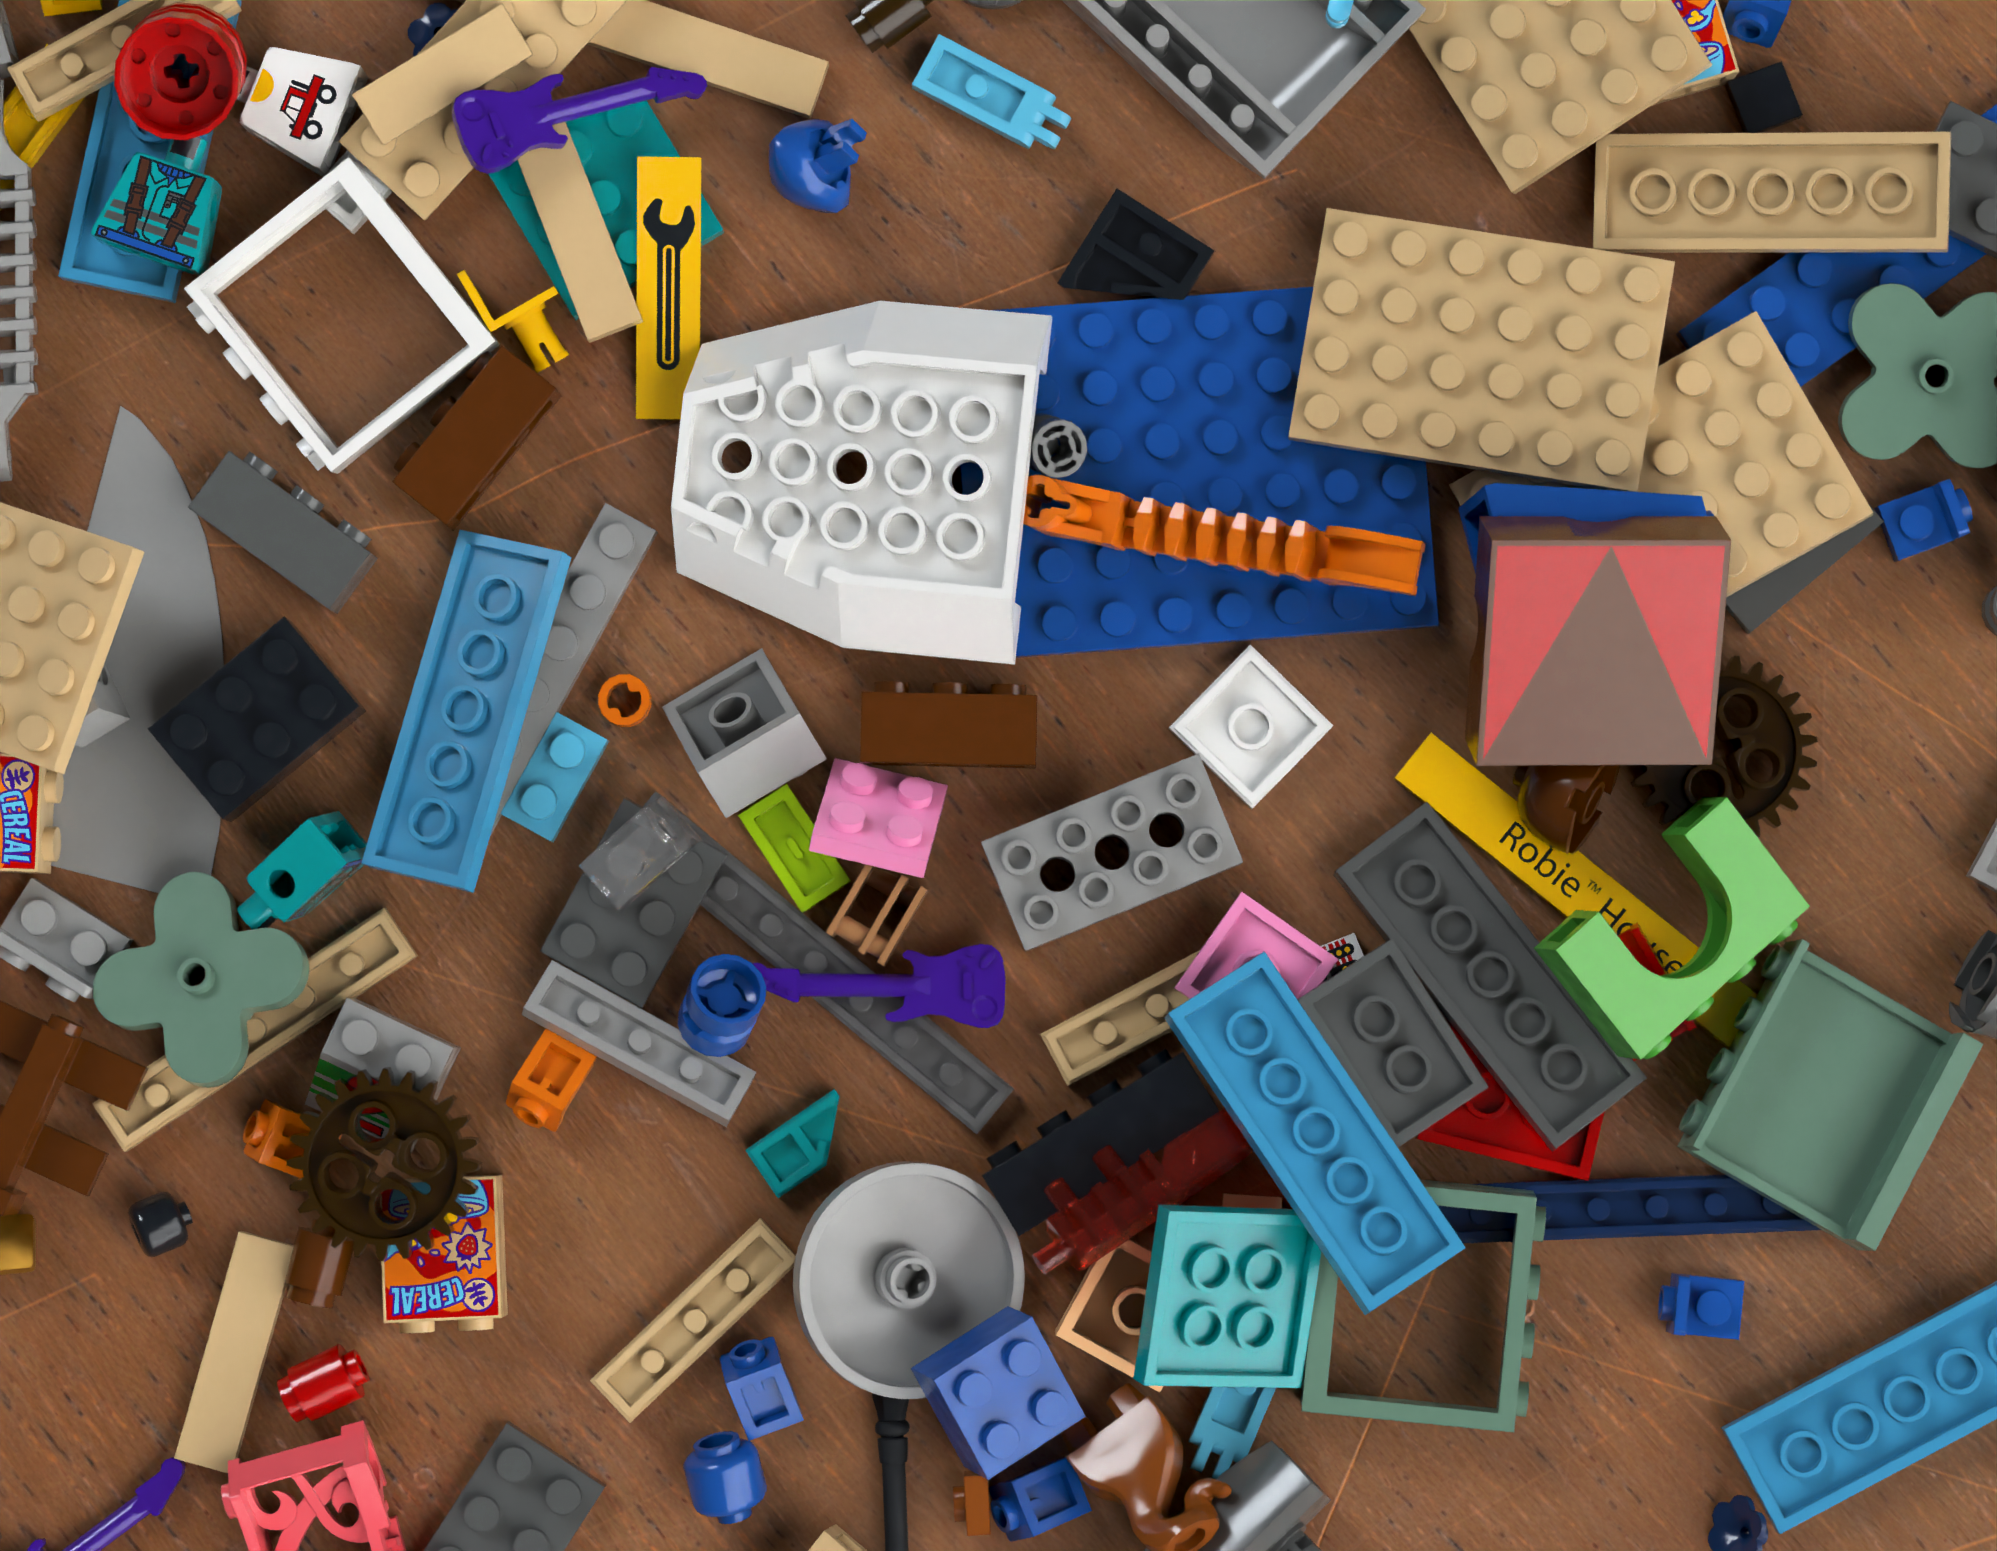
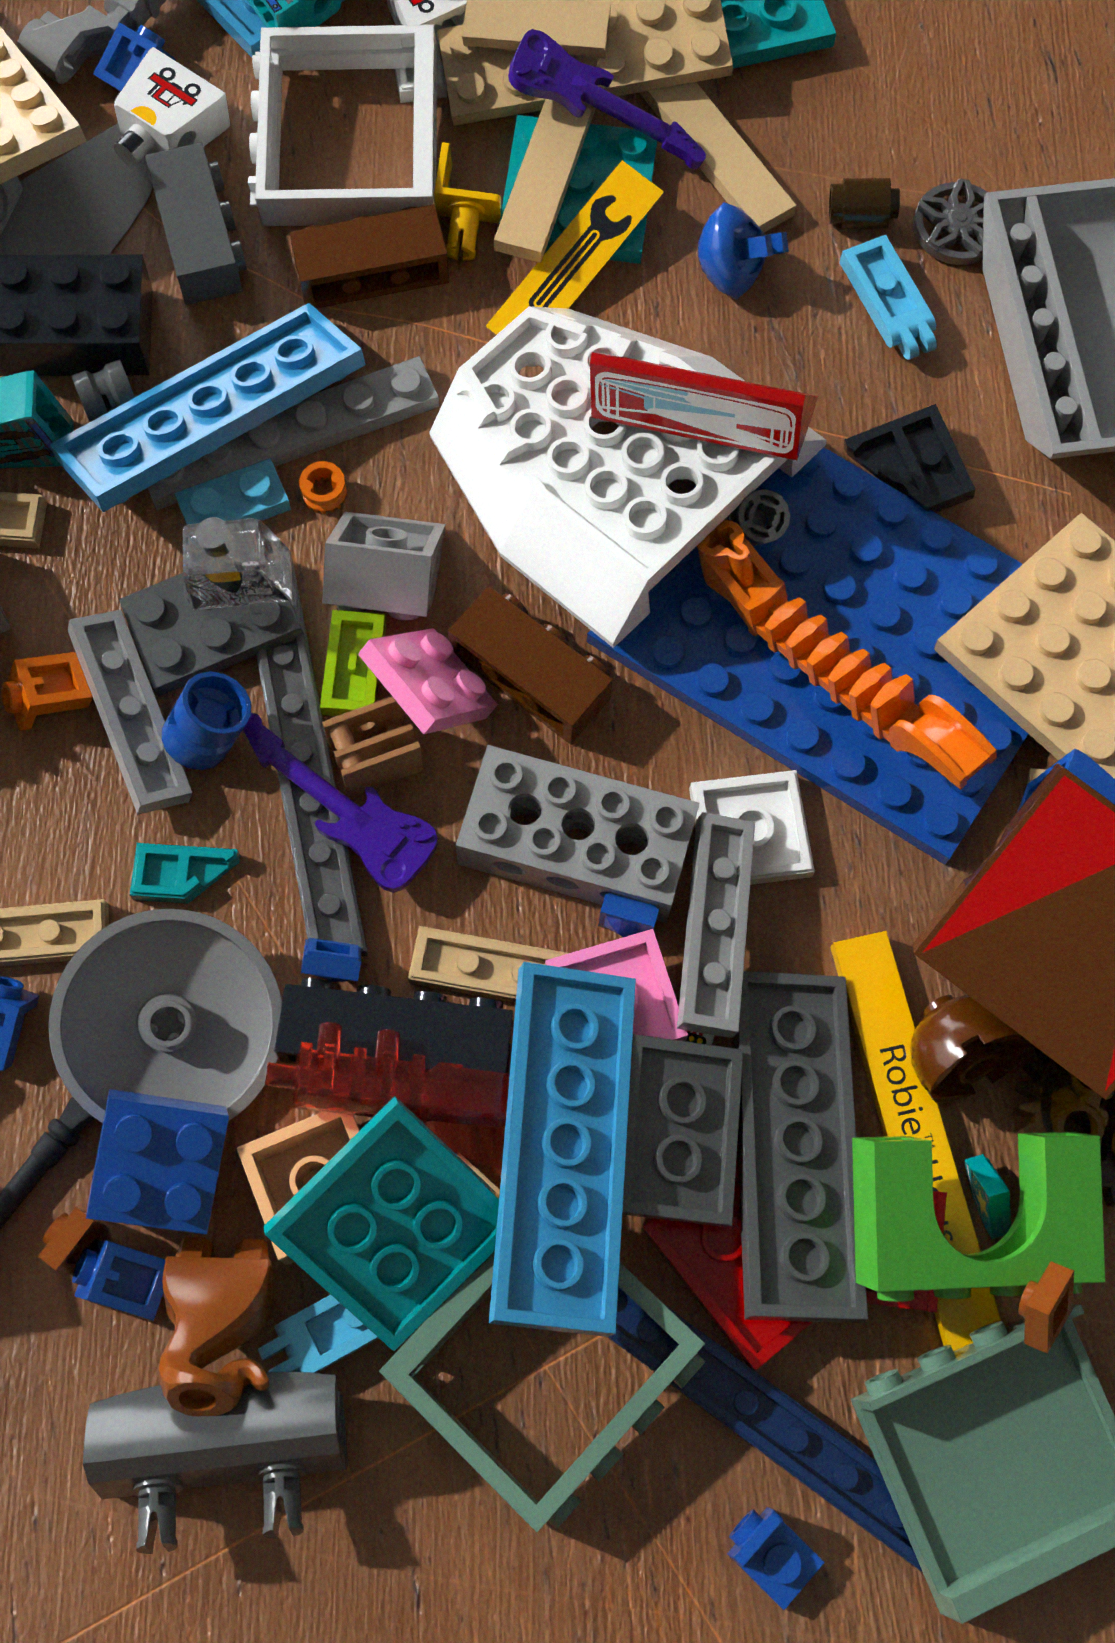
camera: 30 degrees right, 15 degrees down
(69, 402) = (125, 54): none -> blue bracket
(154, 437) = (166, 109): none -> white torso
(353, 767) = (103, 389): none -> dark grey wheel
(928, 388) = (699, 405): none -> slope
(997, 1123) = (331, 960): none -> blue tile
(1210, 893) = (626, 915): none -> blue tile
(1290, 845) = (716, 926): none -> light grey plate
(1672, 893) = (989, 1195): none -> teal tile
(1777, 967) = (1047, 1306): none -> dark orange plate

